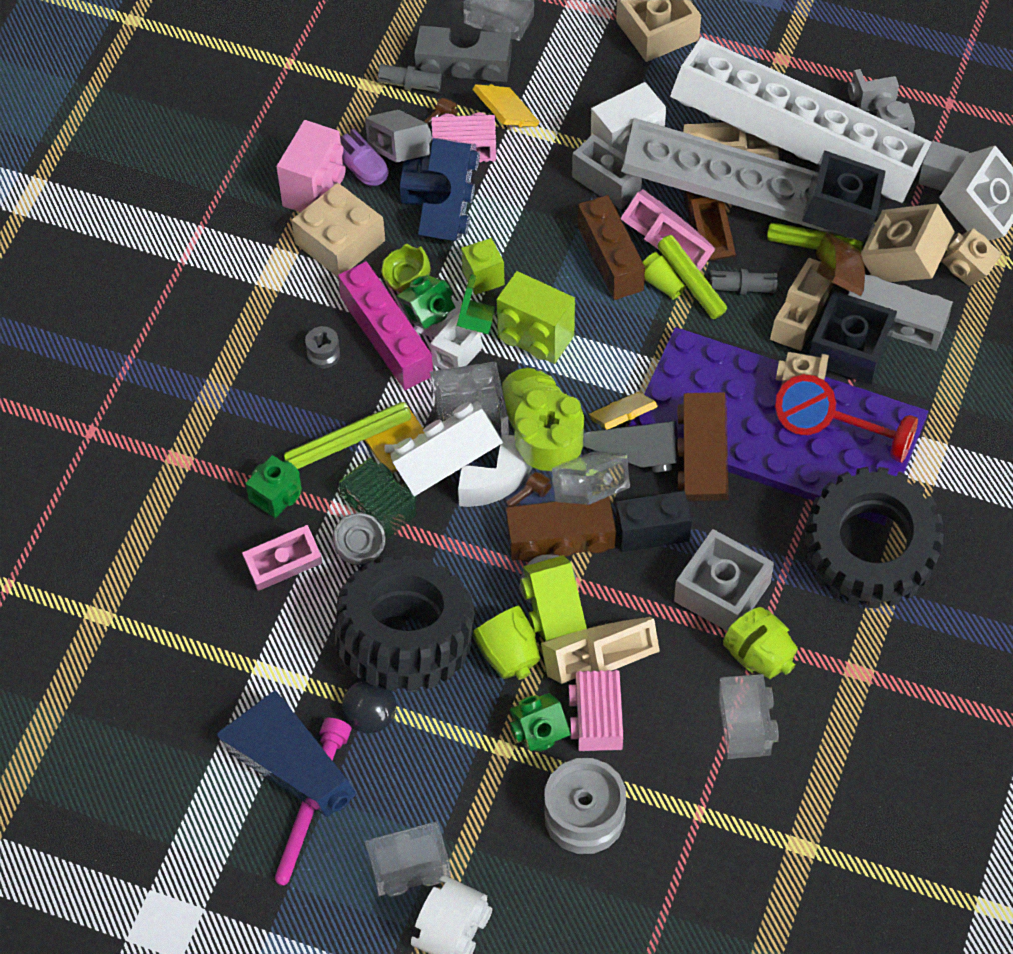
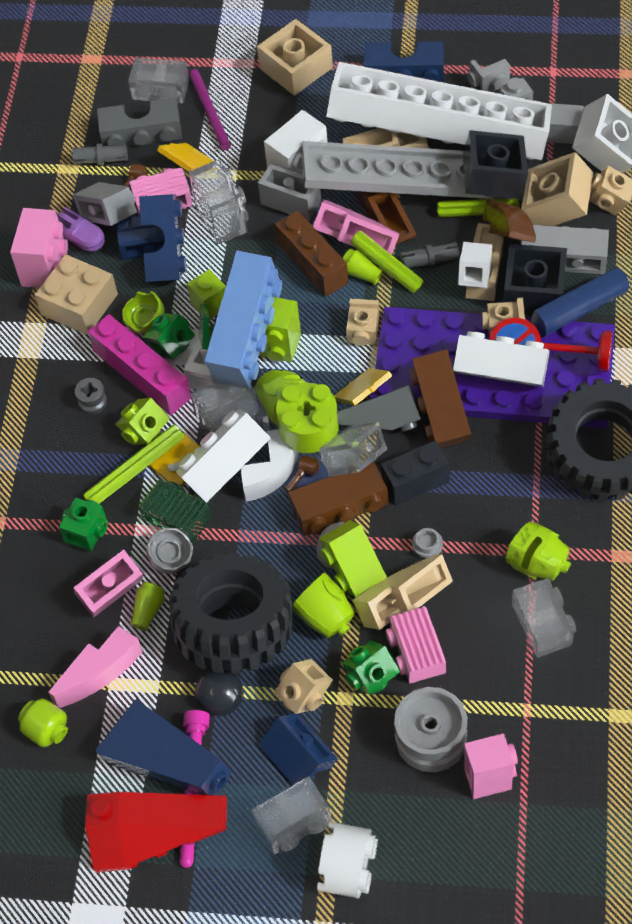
camera: 10 degrees left, 0 degrees up
(170, 690) = (43, 722): none -> lime head
(242, 827) = (138, 826): none -> red wedge
(244, 646) = (96, 668): none -> bright pink slope
(318, 591) = (146, 605): none -> lime cone
(369, 389) = (142, 421): none -> lime brick
(435, 788) = (296, 748): none -> dark blue panel
(460, 723) = (303, 686): none -> tan brick
(507, 304) = (243, 320): none -> medium blue brick
(525, 163) = (219, 201): none -> clear brick
(546, 55) = (209, 109): none -> magenta bar
(637, 861) = (489, 765): none -> bright pink brick
(644, 602) = (427, 543): none -> light grey plate
(646, 338) = (363, 322): none -> tan brick
(723, 580) = (490, 508): light grey brick -> none
(785, 418) = (501, 359): none -> white brick
(787, 304) = (475, 264): none -> white brick
(802, 62) = (424, 64): none -> dark blue arch
(894, 375) = (580, 302): none -> dark blue brick

